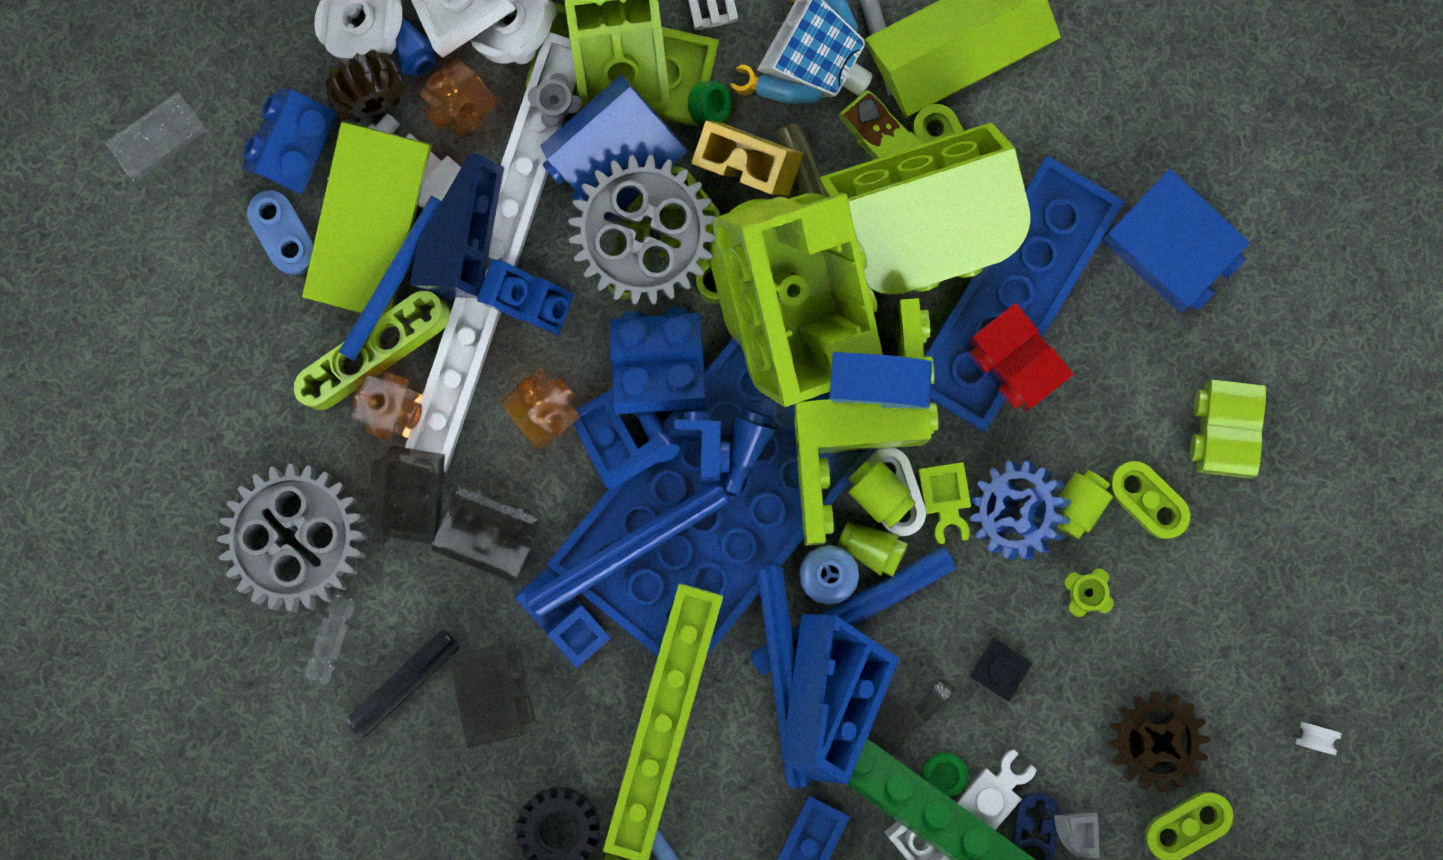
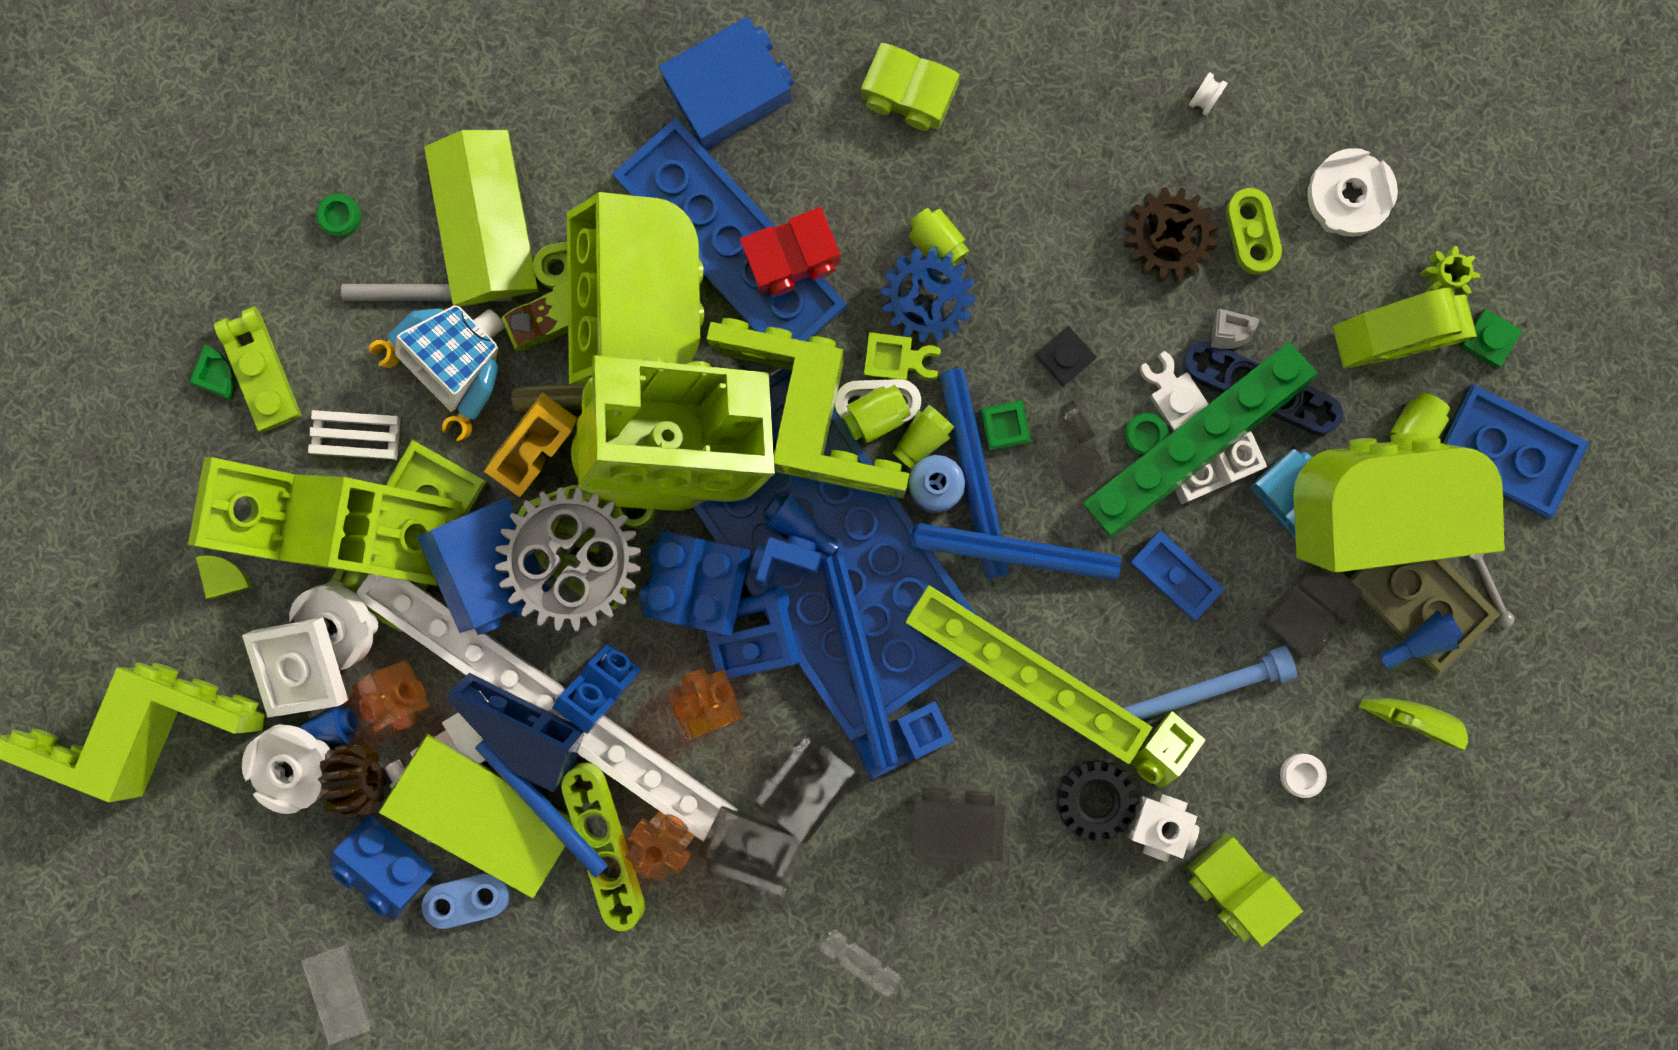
camera: 70 degrees left, 0 degrees up
(265, 567) = (776, 1005): light grey gear -> none
(403, 683) = (921, 906): black axle -> none
(558, 87) = (409, 601): light grey plate -> none
(709, 102) = (467, 465): green tile -> none
(833, 697) = (1050, 511): blue wedge -> none
(881, 380) = (776, 378): blue slope -> none
(911, 628) = (1005, 425): none -> green tile
(1098, 601) = (1028, 248): lime plate -> none
(1149, 499) = (949, 175): lime plate -> none

